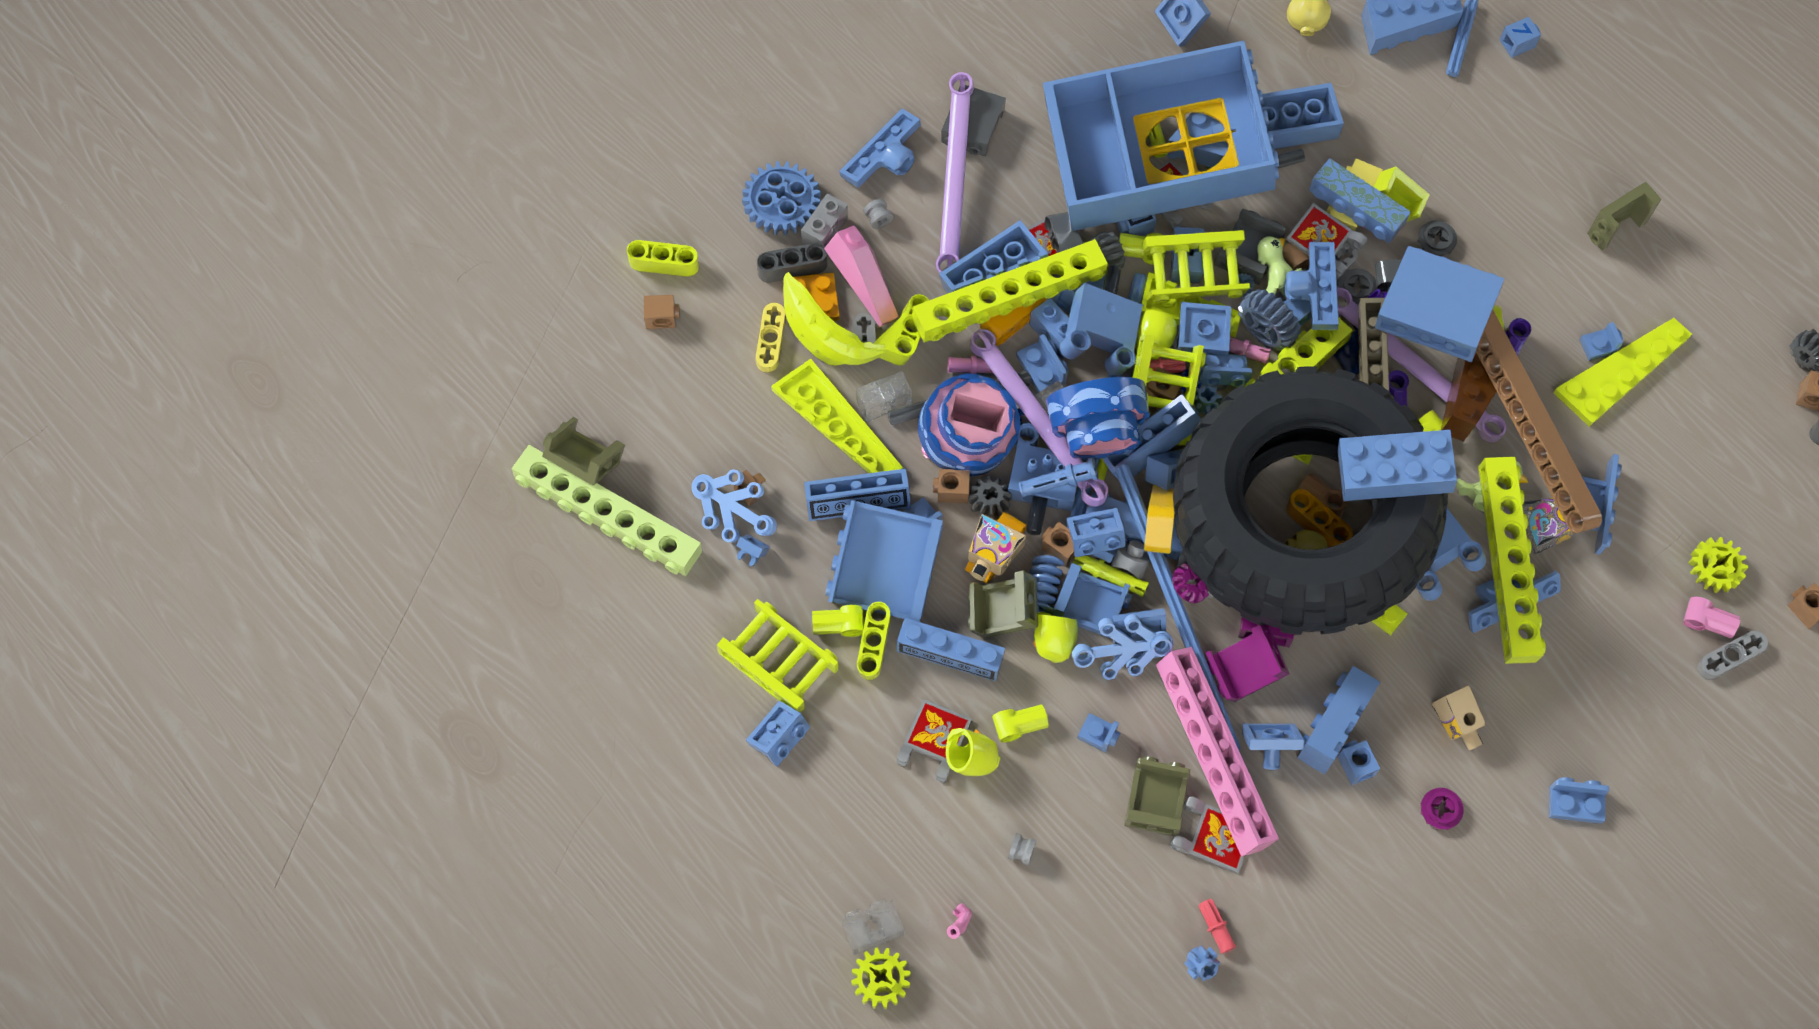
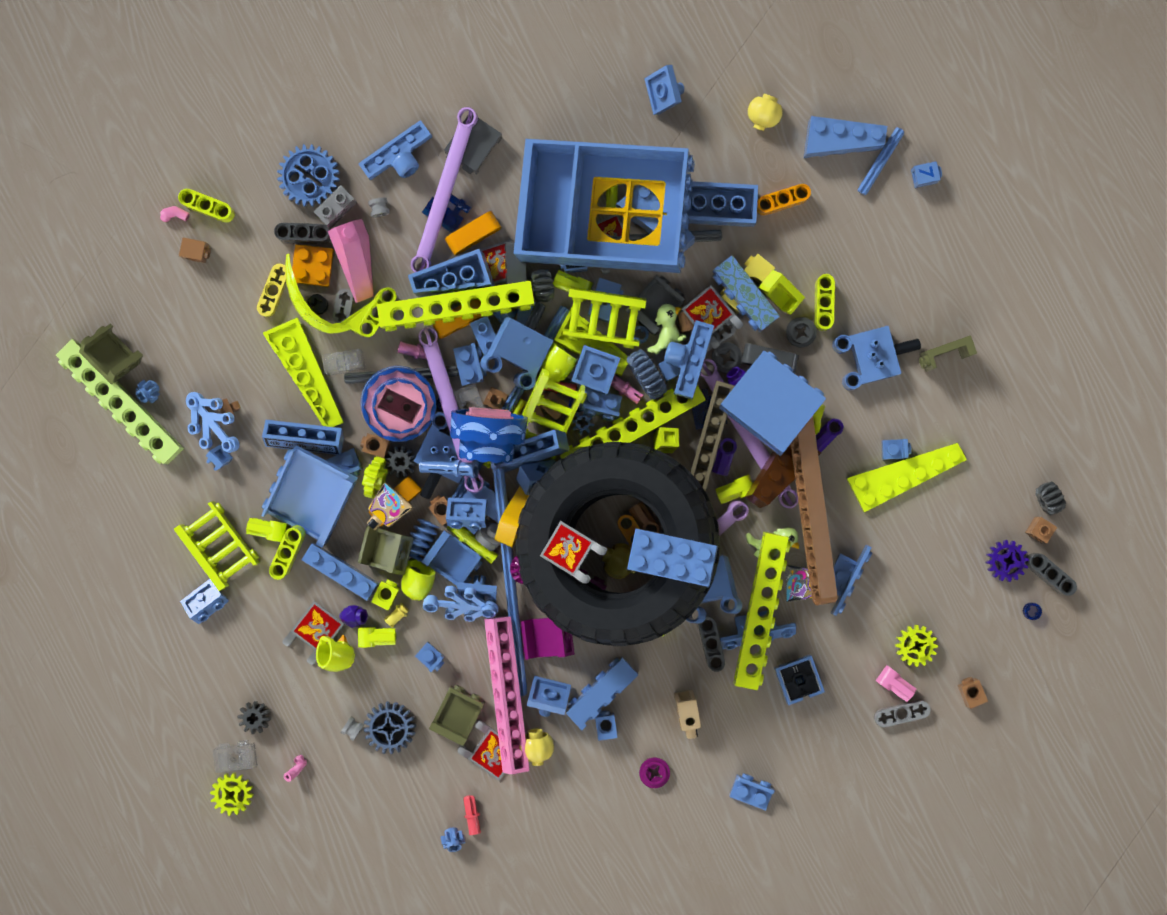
camera: 15 degrees right, 20 degrees up
(623, 275) = (174, 211): none -> bright pink arm
(640, 488) = (147, 391): none -> medium blue gear
(895, 870) = (258, 724): none -> dark grey gear
(964, 518) = (374, 477): none -> neon yellow gear
(972, 208) = (451, 219): none -> clear blue plate
(982, 701) = (353, 616): none -> dark purple rock
(1002, 215) = (473, 233): none -> light orange beam
(1014, 675) = (379, 600): none -> neon yellow brick
(1039, 688) = (393, 618): none -> light yellow pin
(1082, 831) = (380, 729): none -> sand blue gear
(1260, 497) = (569, 549): none -> flag
(1281, 809) = (538, 746): none -> light yellow plant
(1371, 92) = (790, 193): none -> light orange beam
(1454, 188) = (829, 294): none -> neon yellow beam
(1459, 637) = (717, 650): none -> dark grey beam
(1534, 243) = (874, 355): none -> medium blue piece
(1587, 641) = (793, 685): none -> piece
(1789, 437) = (1009, 553): none -> dark purple gear

